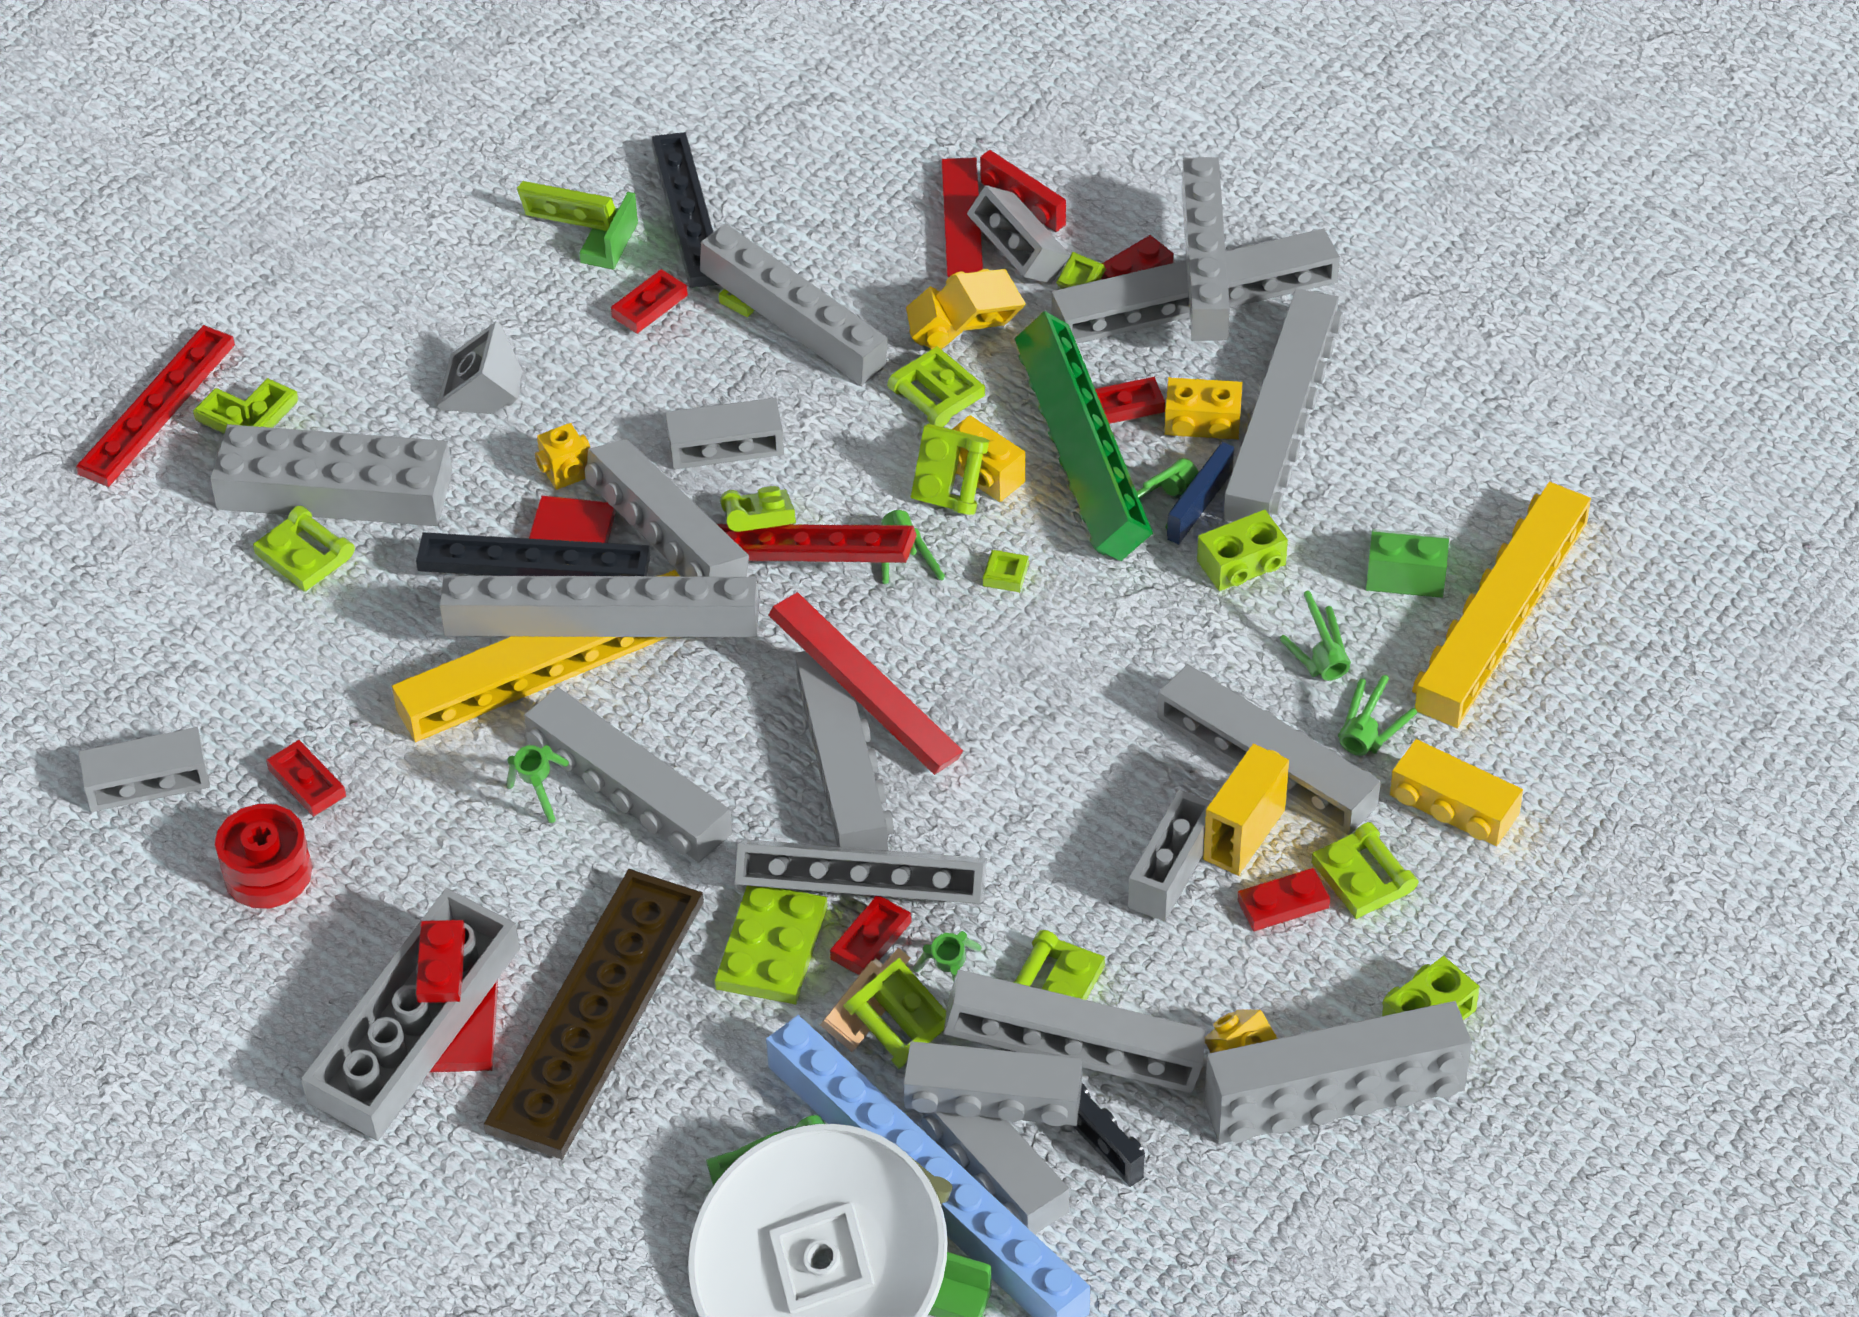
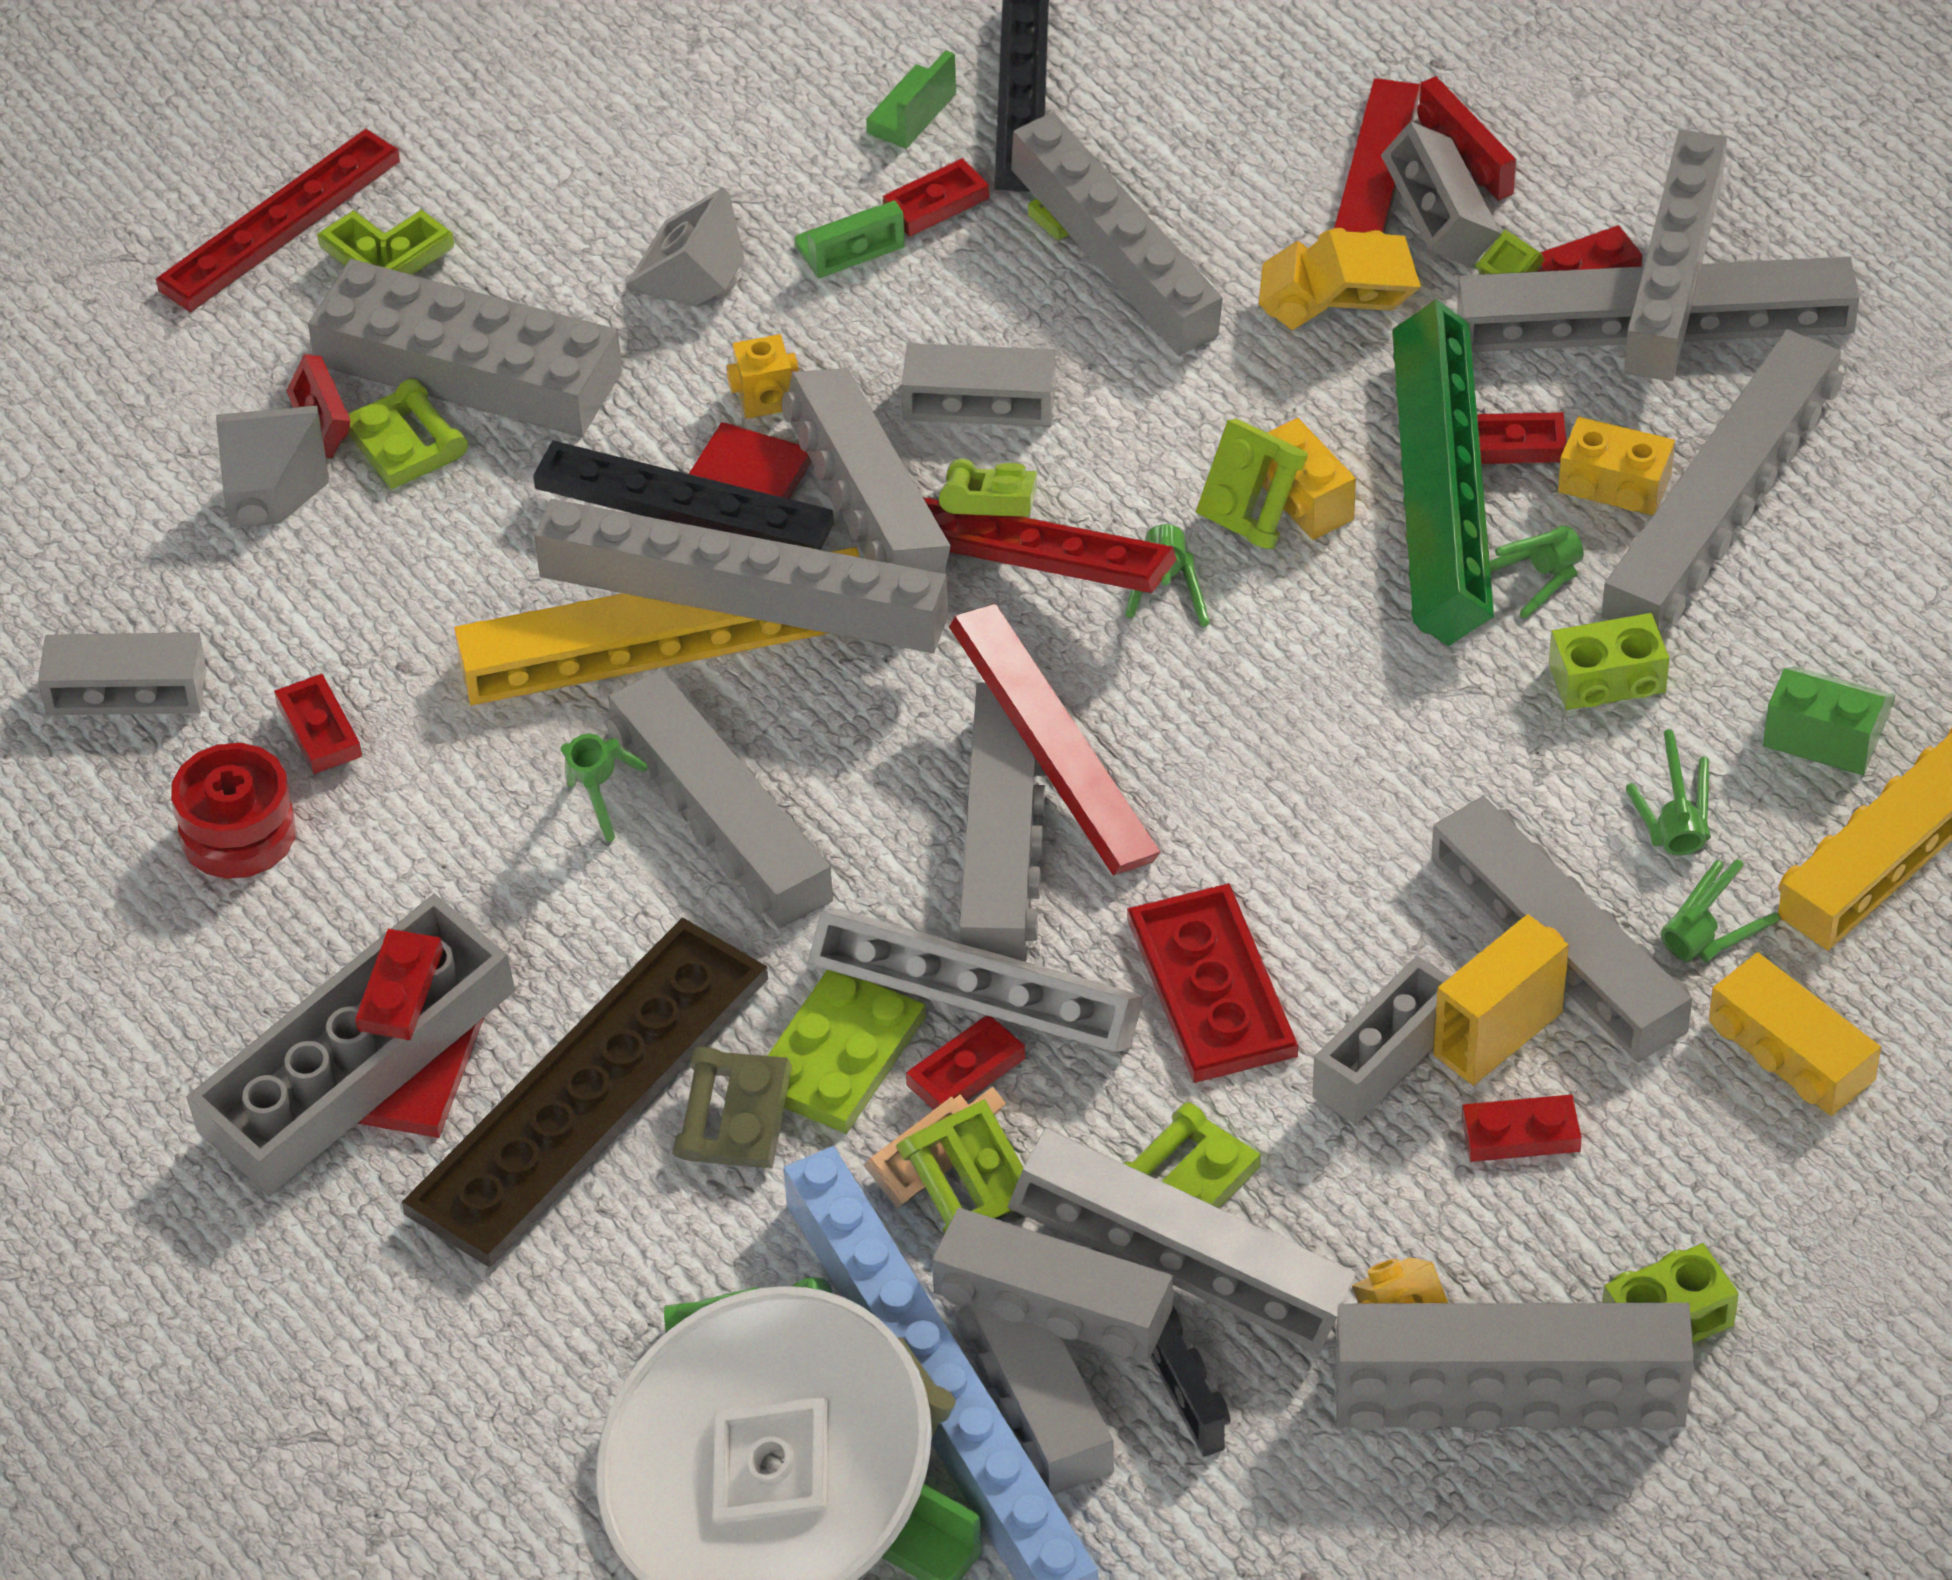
camera: 15 degrees right, 0 degrees up
(211, 589) = (270, 463): none -> light grey slope
(232, 539) = (315, 387): none -> red plate
(566, 205) = (864, 54): lime tile -> none
(596, 343) = (852, 239): none -> bright green panel
(723, 1002) = (750, 1109): none -> olive plate
(944, 379) = (1286, 366): lime plate -> none
(947, 952) = (1049, 1103): bright green plant -> none
(1005, 571) = (1290, 630): lime tile -> none
(1029, 839) = (1212, 983): none -> red tile
(1200, 493) = (1575, 576): dark blue tile -> none
(1354, 878) = (1624, 1119): lime plate -> none

